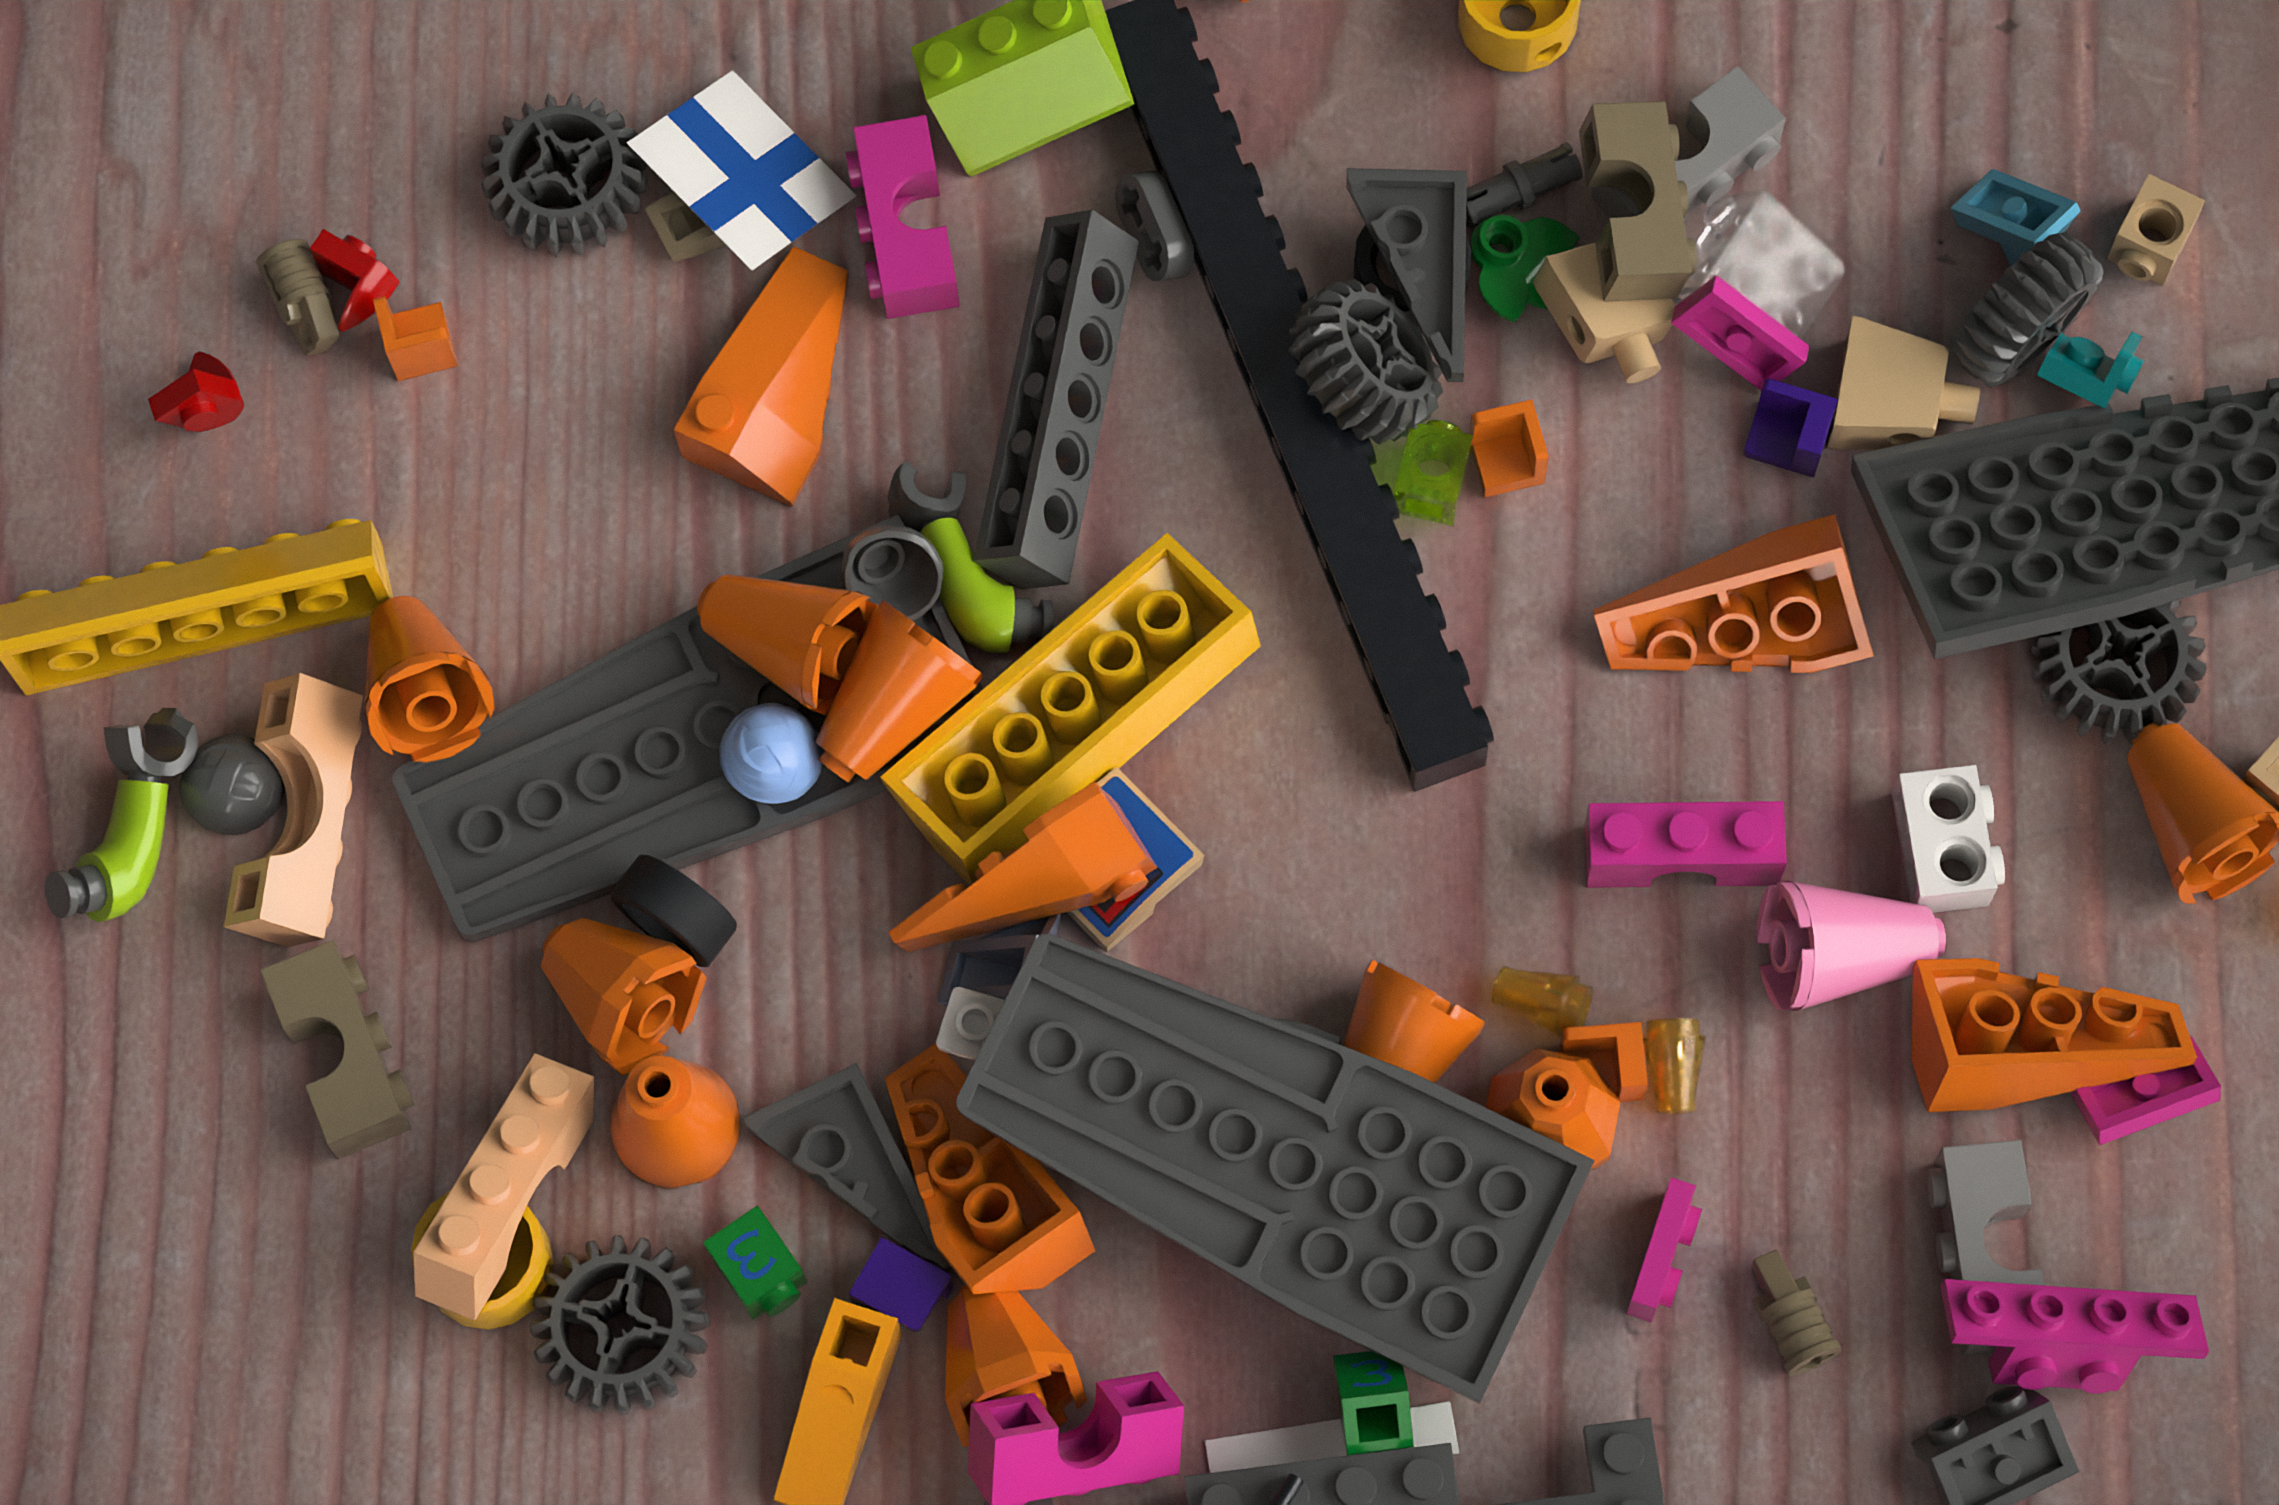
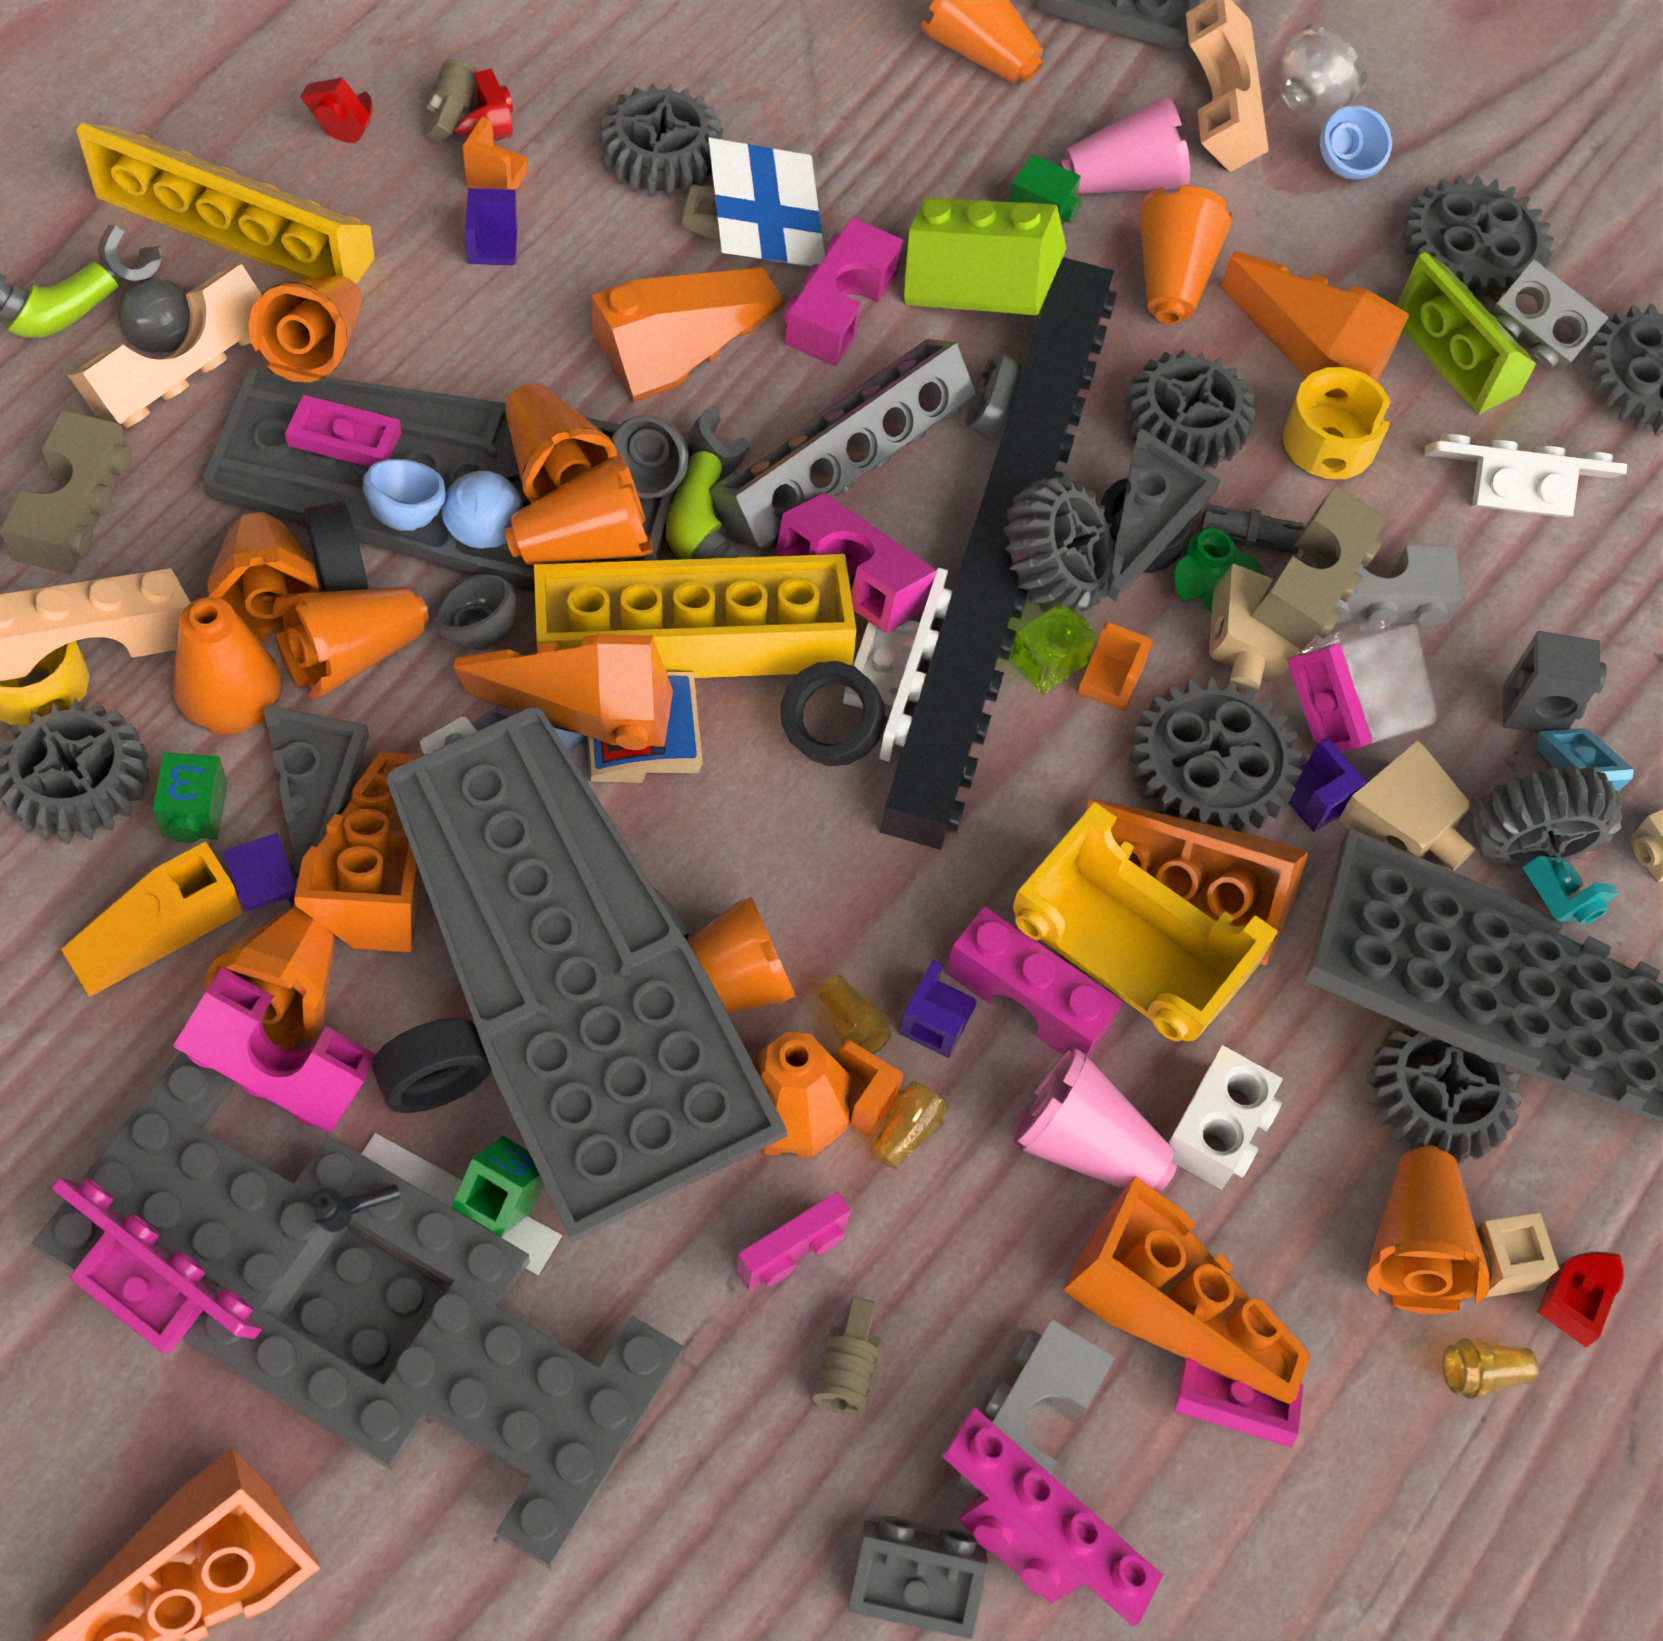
camera: 25 degrees right, 10 degrees down
(481, 417) = (491, 226): none -> dark purple panel
(562, 776) = (342, 431): none -> dark pink plate
(688, 797) = (403, 493): none -> light blue piece
(754, 988) = (344, 632): none -> orange cone
(857, 864) = (477, 612): none -> dark grey piece
(1219, 1343) = (431, 1065): none -> black tyre
(1229, 521) = (888, 580): none -> dark pink arch
(1281, 757) = (804, 686): none -> black tyre
(1293, 608) = (894, 663): none -> white bracket
(1405, 81) = (1192, 407): none -> dark grey gear
(1616, 934) = (937, 1013): none -> dark purple panel
(1625, 443) = (1215, 756): none -> dark grey gear
(1748, 721) = (1137, 931): none -> yellow windscreen
(1934, 155) = (1552, 683): none -> dark grey brick

